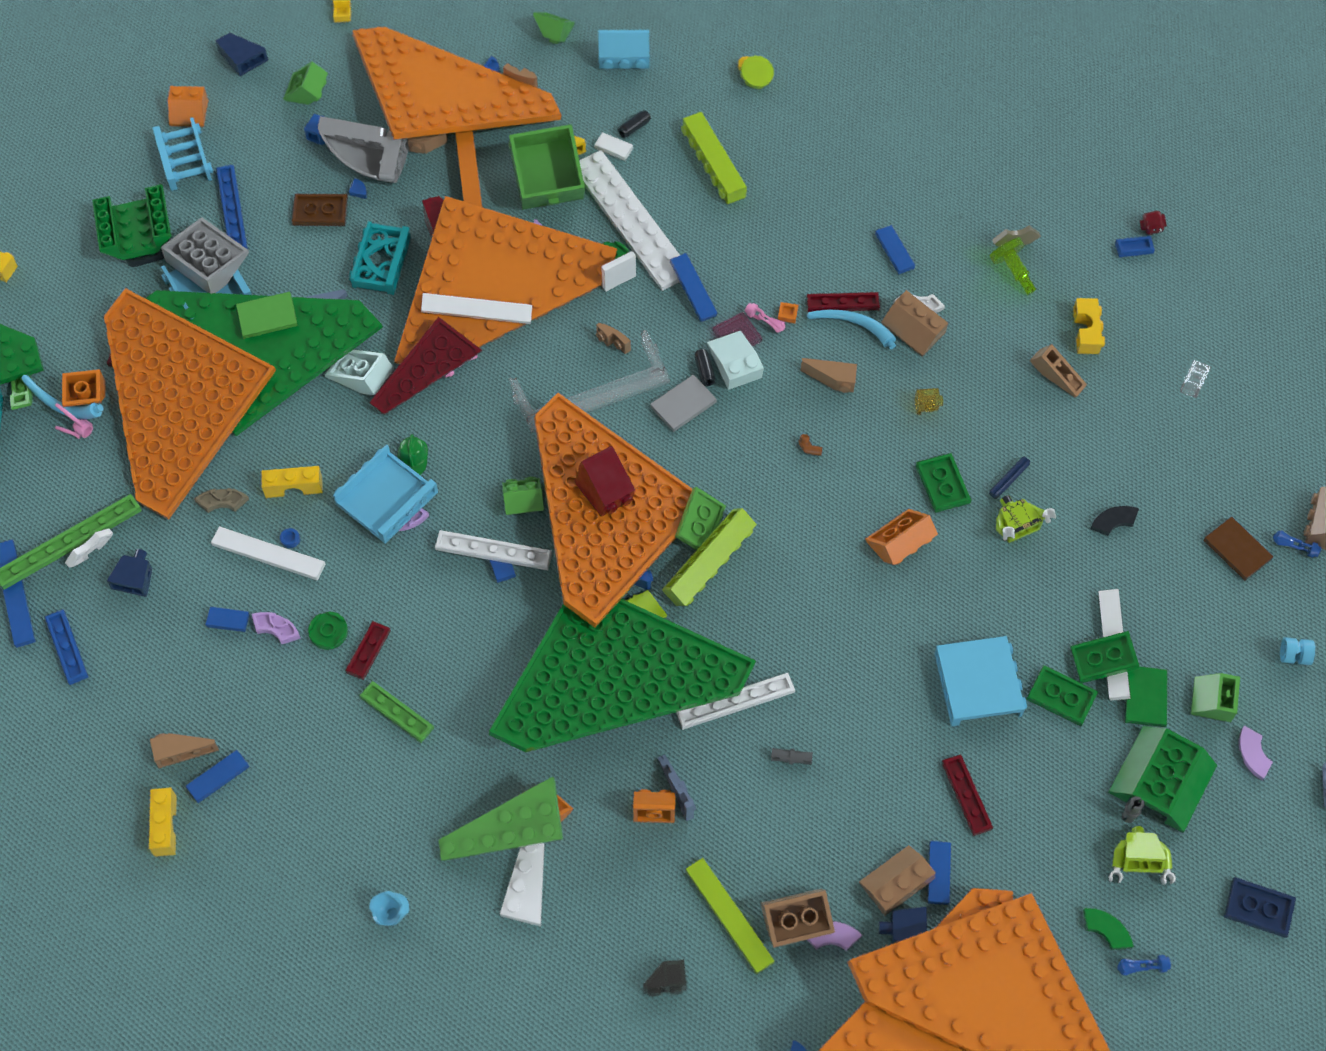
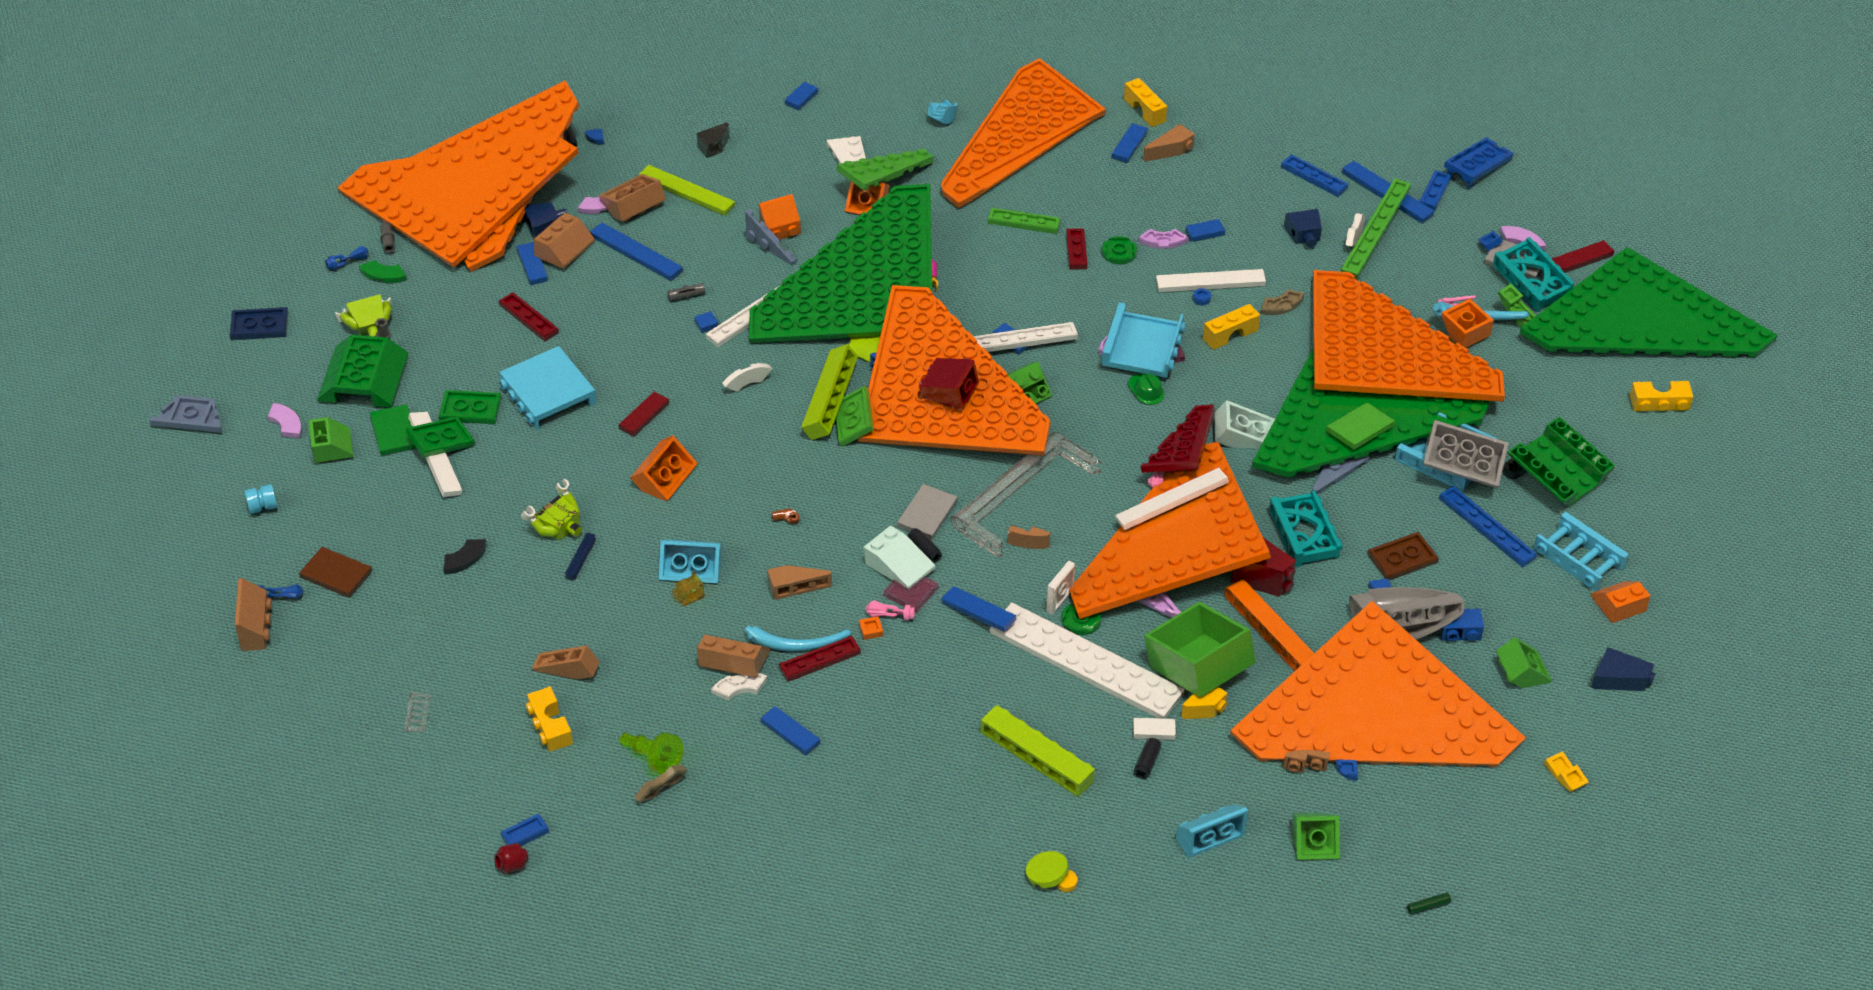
camera: 155 degrees right, 15 degrees down
(298, 857) = (1025, 122): none -> orange wing
(530, 1019) = (801, 95): none -> blue tile
(779, 609) = (740, 378): none -> white tile
(786, 708) = (706, 321): none -> blue tile
(821, 842) = (636, 251): none -> blue tile
(894, 615) = (643, 413): none -> dark red tile
(913, 430) = (683, 557): none -> medium azure slope
(943, 482) = (642, 531): green tile -> none
(1091, 978) = (387, 237): none -> dark grey pin

